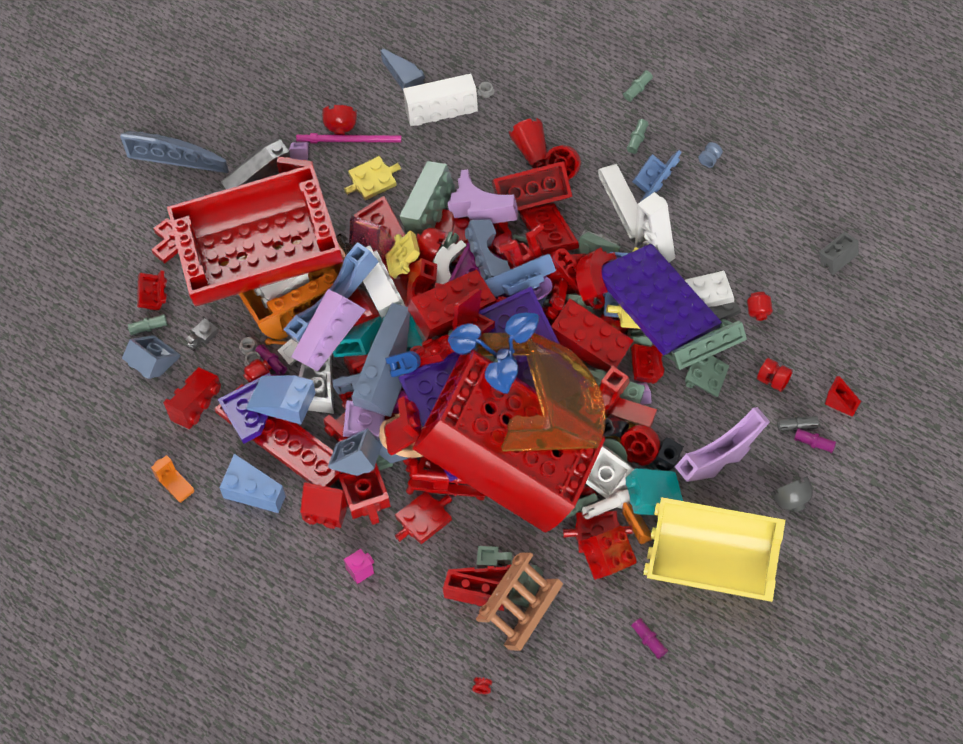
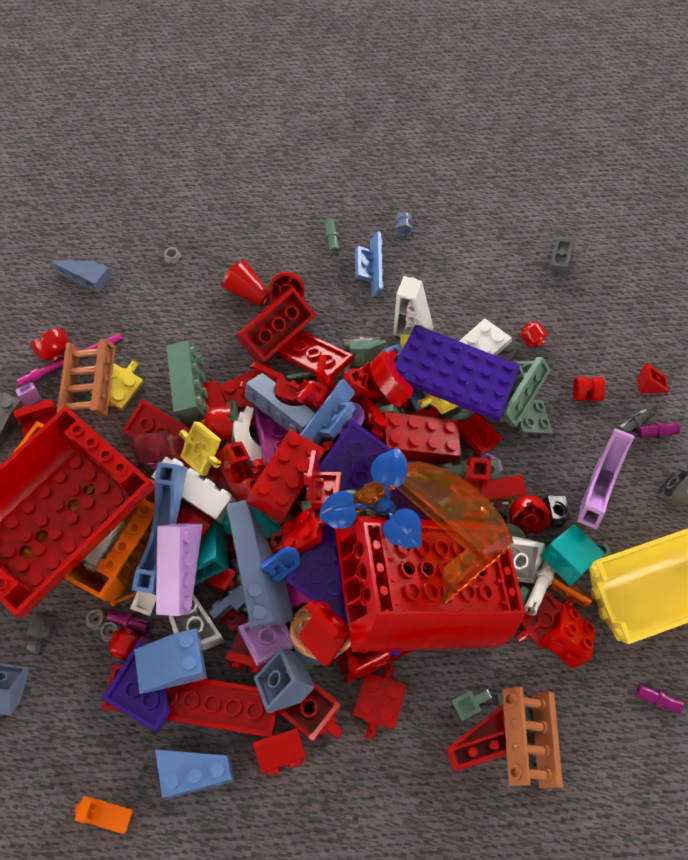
camera: 35 degrees left, 5 degrees up
(192, 398) = (72, 709): red wedge -> none
(359, 565) = (354, 792): dark pink brick -> none
(360, 166) = (102, 379): none -> nougat fence
(440, 99) = (138, 283): white brick -> none
(481, 205) = (240, 363): lavender arch -> none
(481, 685) = (550, 846): red bush -> none
(620, 197) = (358, 298): white beam -> none
(638, 85) = (303, 192): sand green pin -> none

